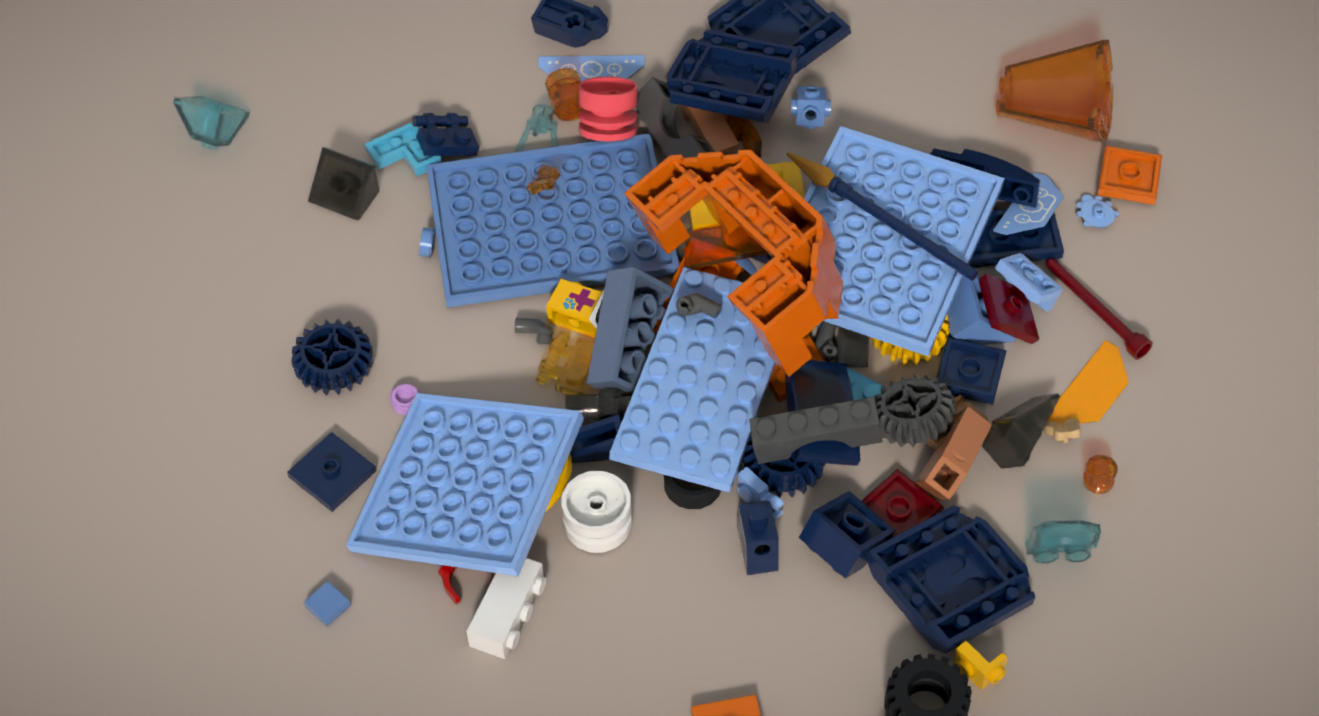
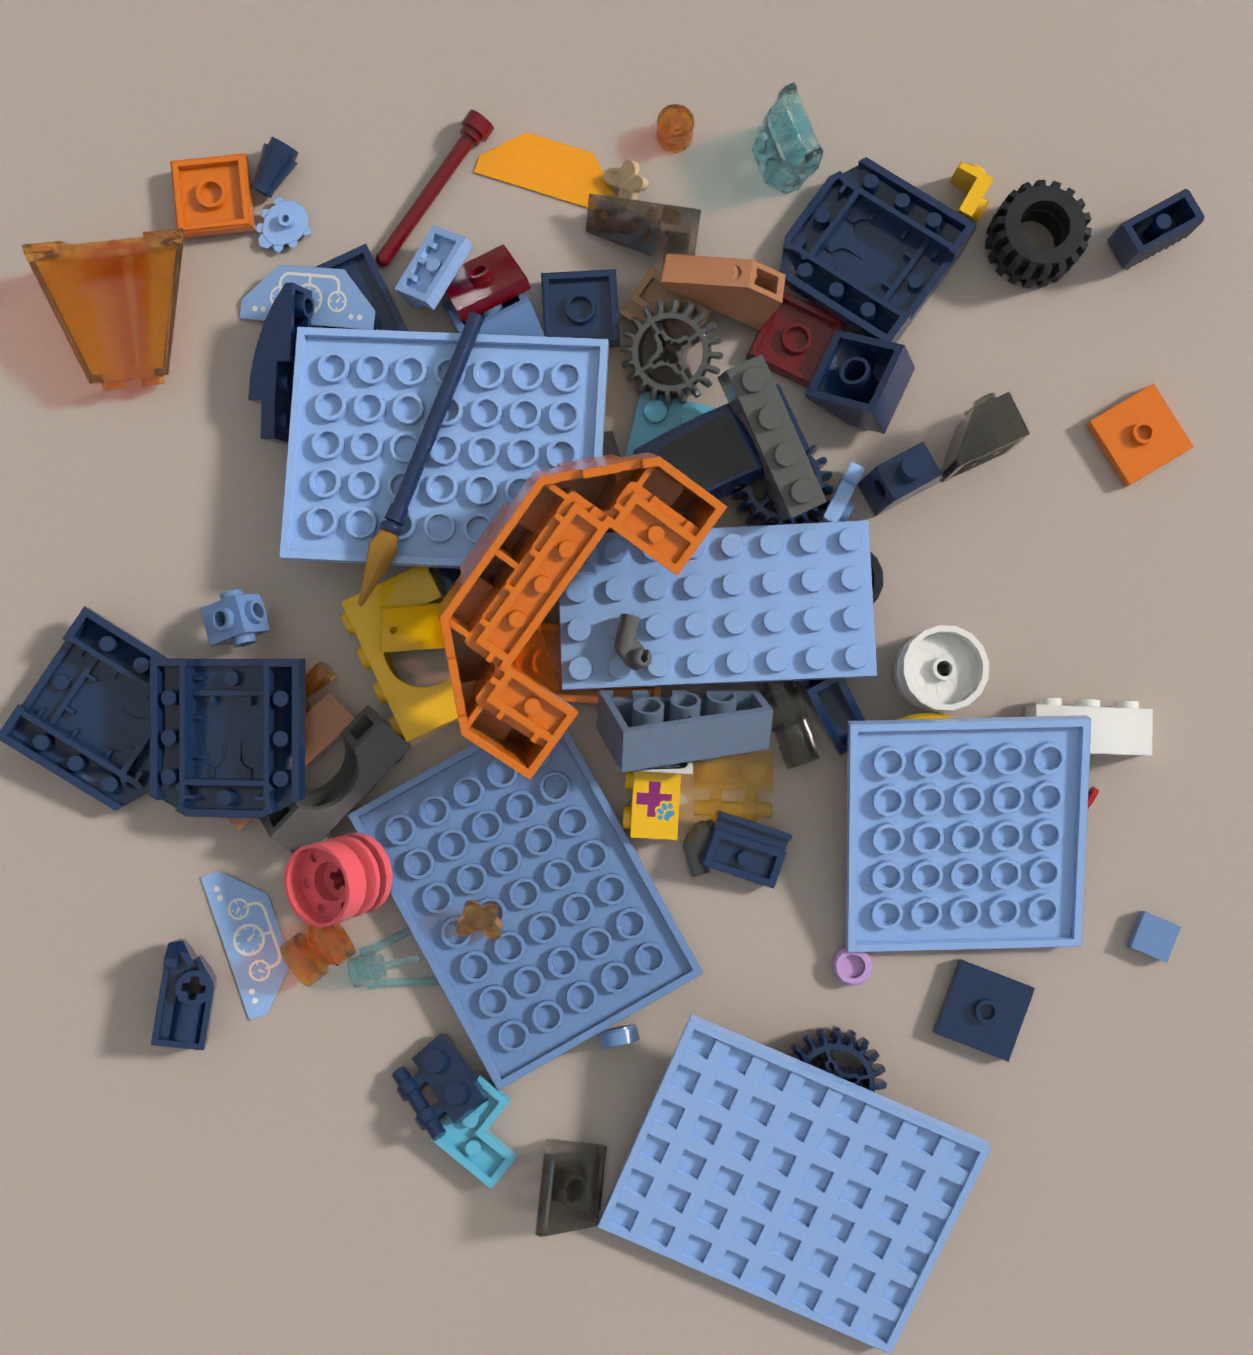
camera: 115 degrees left, 30 degrees up
(276, 304) = (793, 1183): none -> light blue plate
(520, 351) = (745, 849): none -> dark blue plate
(770, 594) = (984, 434): none -> clear smoke slope
(1144, 216) = (274, 166): none -> dark blue cone

